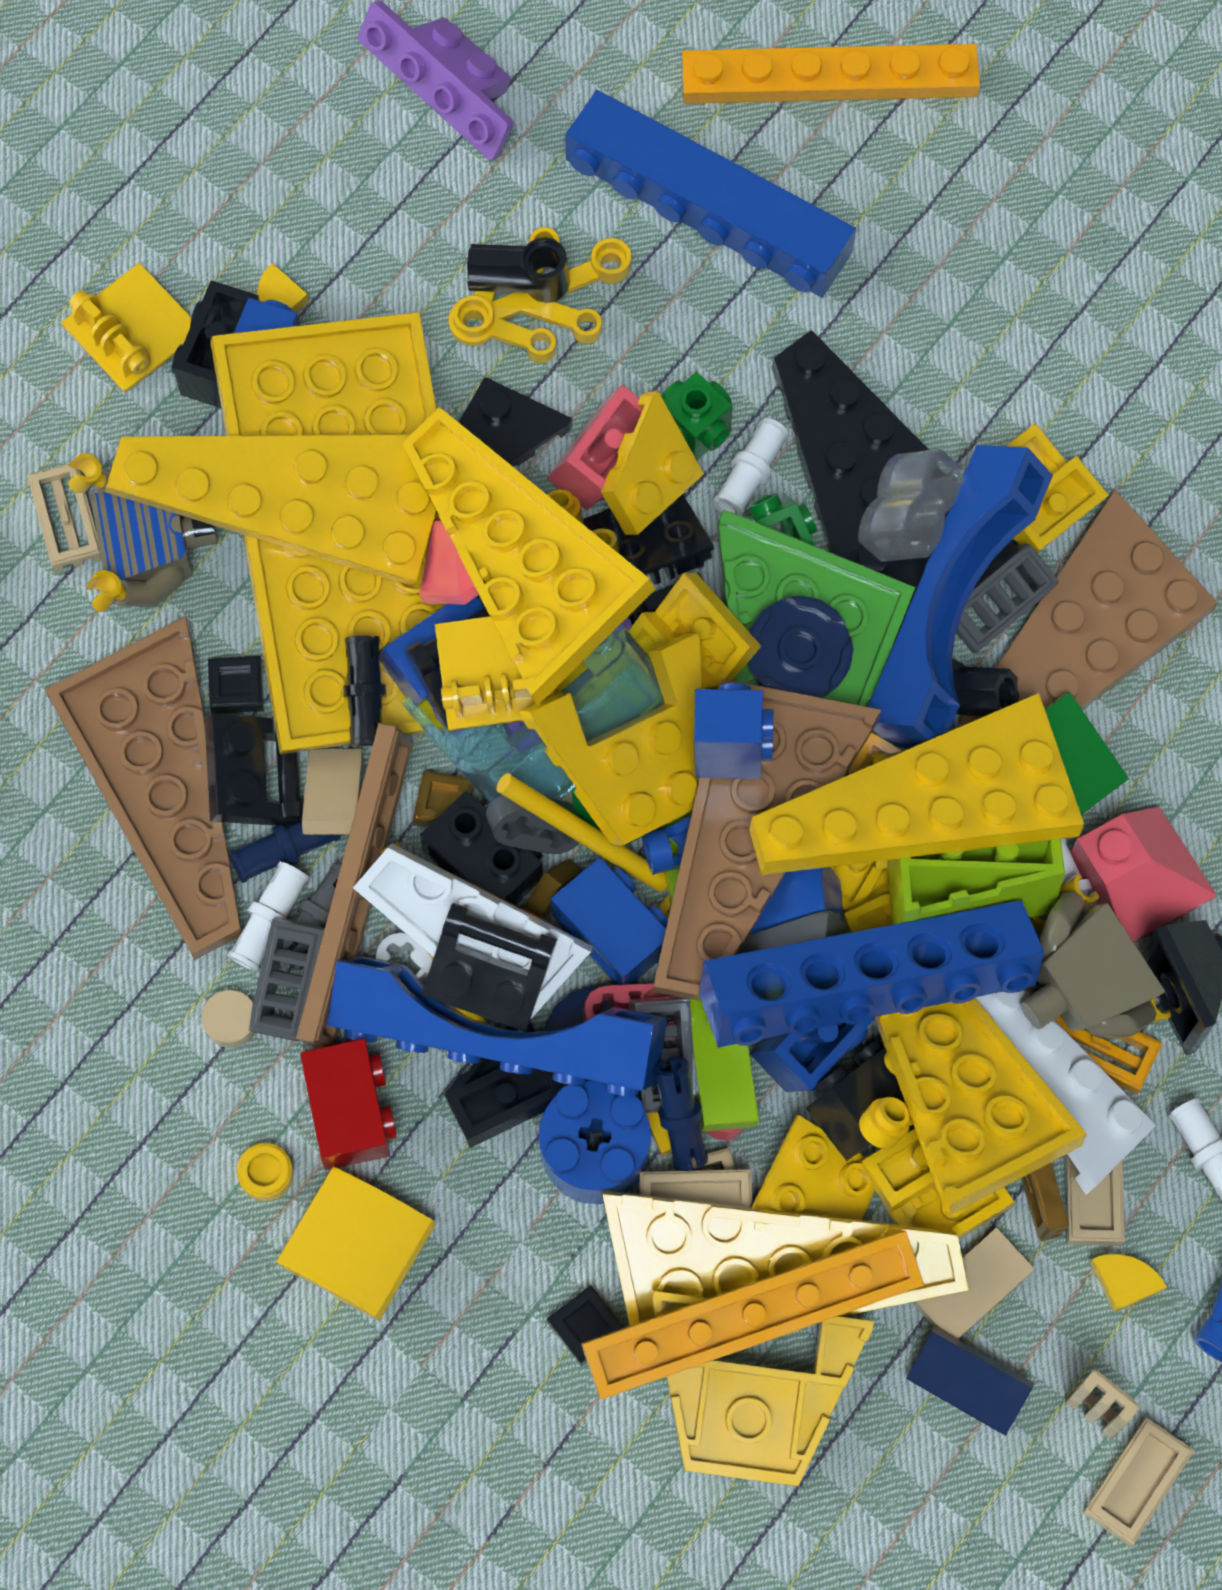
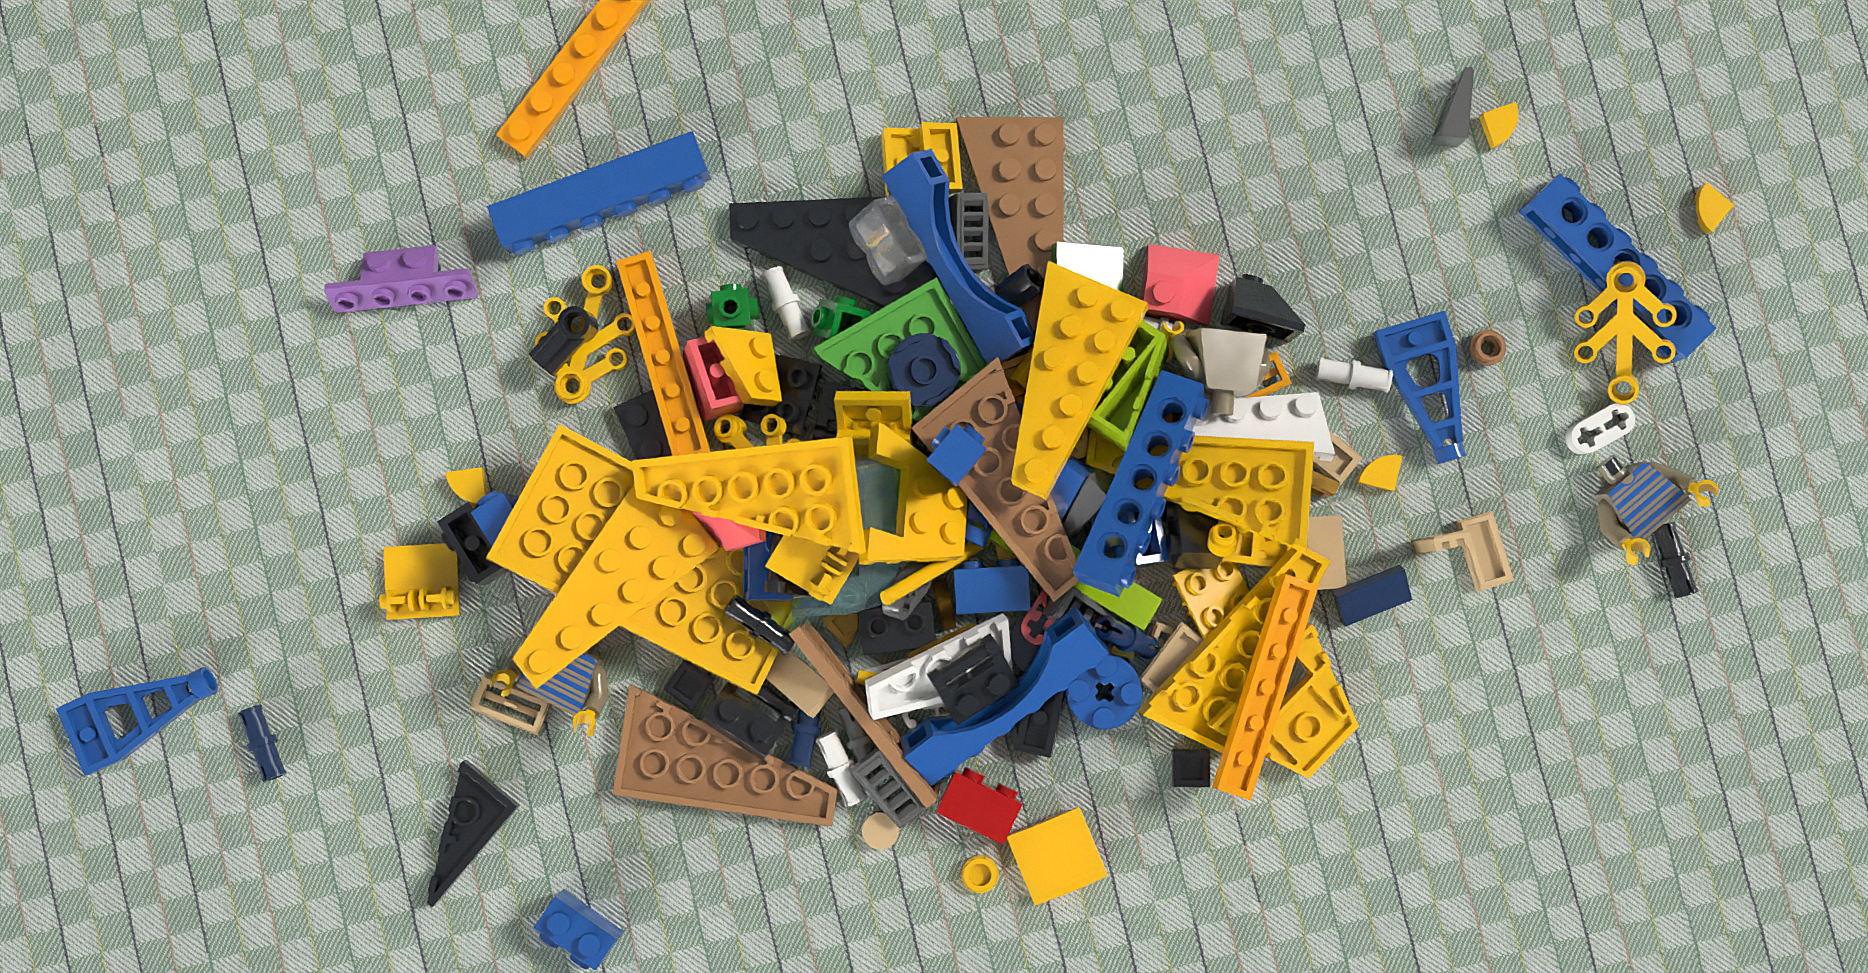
camera: 55 degrees left, 15 degrees up
(591, 372) = (662, 355): none -> light orange plate

